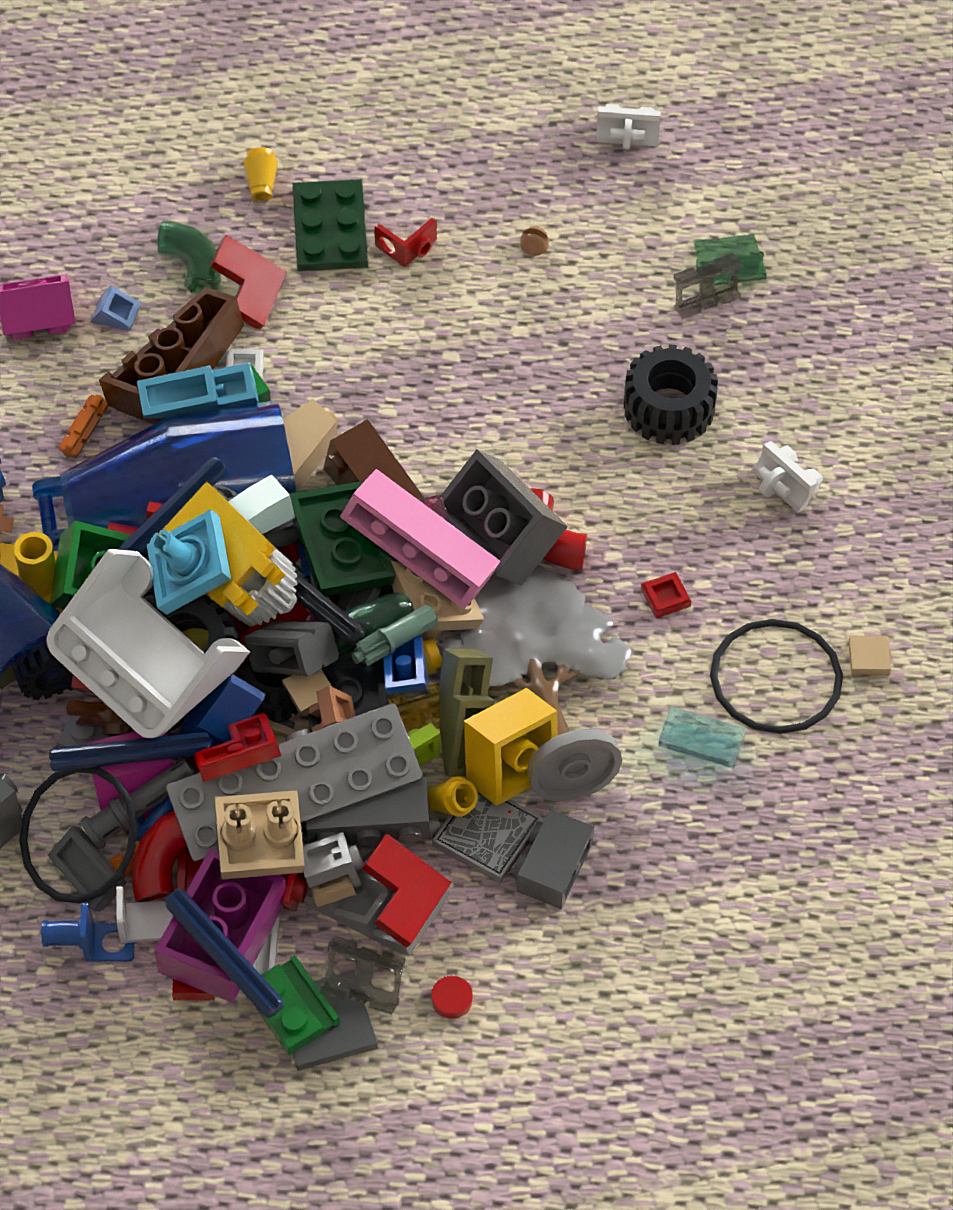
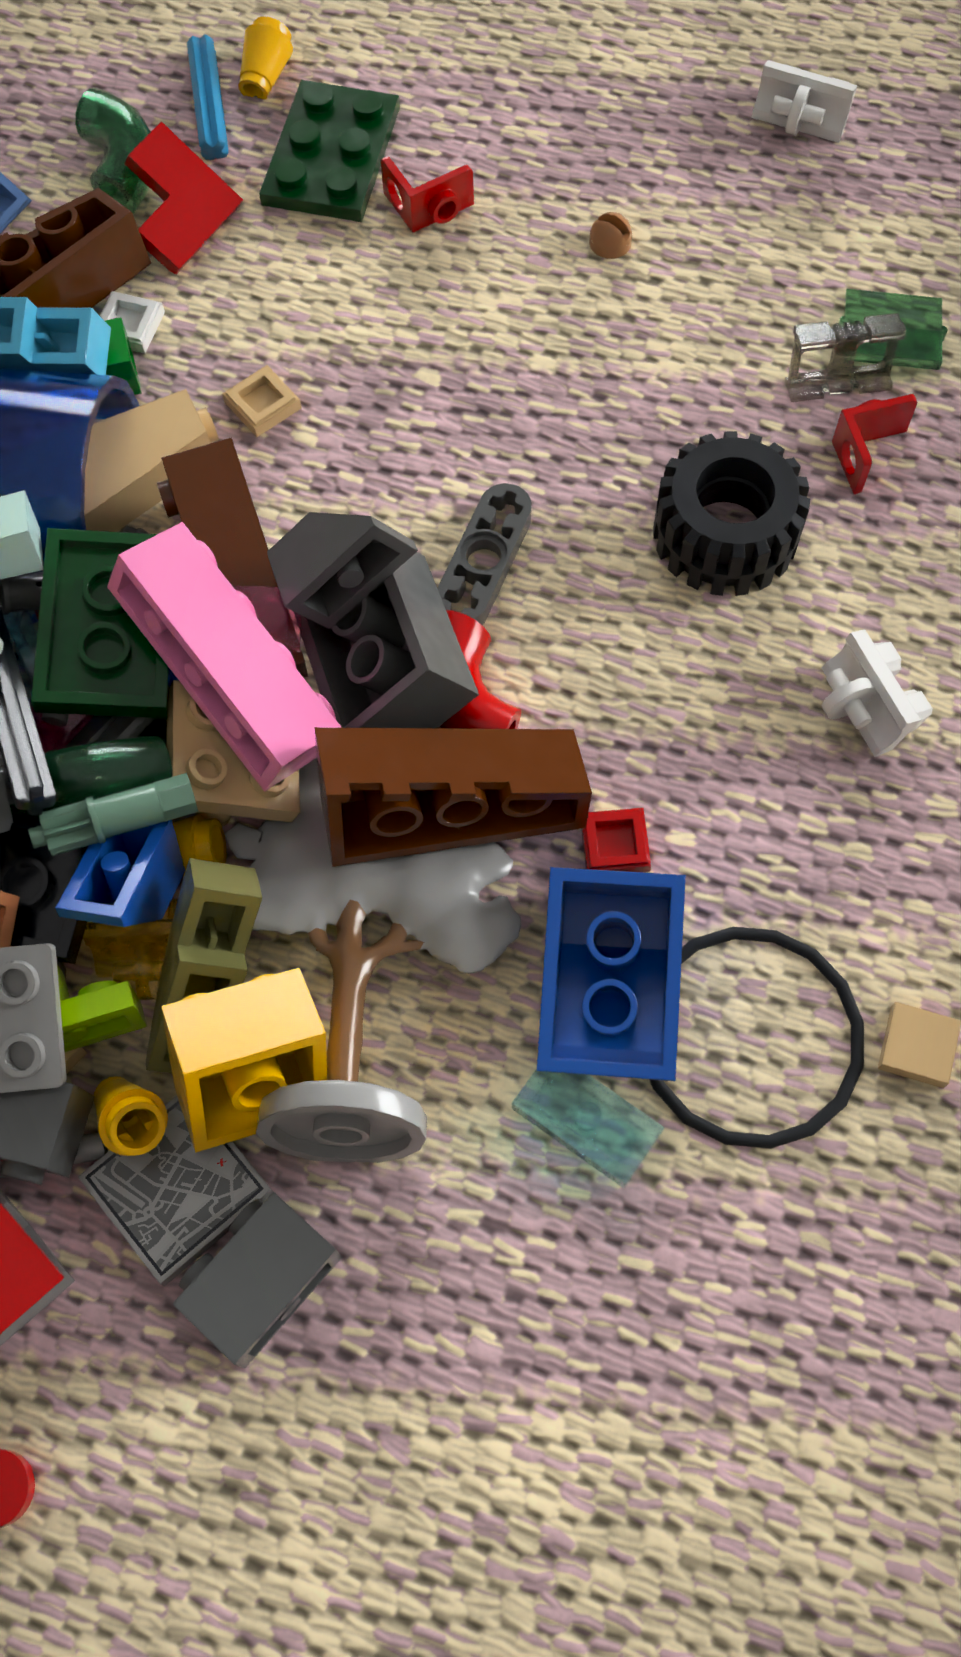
camera: 20 degrees right, 10 degrees up
(232, 207) = (207, 98): none -> dark azure axle
(352, 395) = (261, 400): none -> tan tile
(463, 472) = (335, 563): none -> dark grey slope
(538, 445) = (480, 536): none -> dark grey beam
(564, 583) = (445, 788): none -> reddish brown wedge
(690, 654) = (612, 974): none -> blue slope
(732, 322) = (865, 423): none -> red bracket

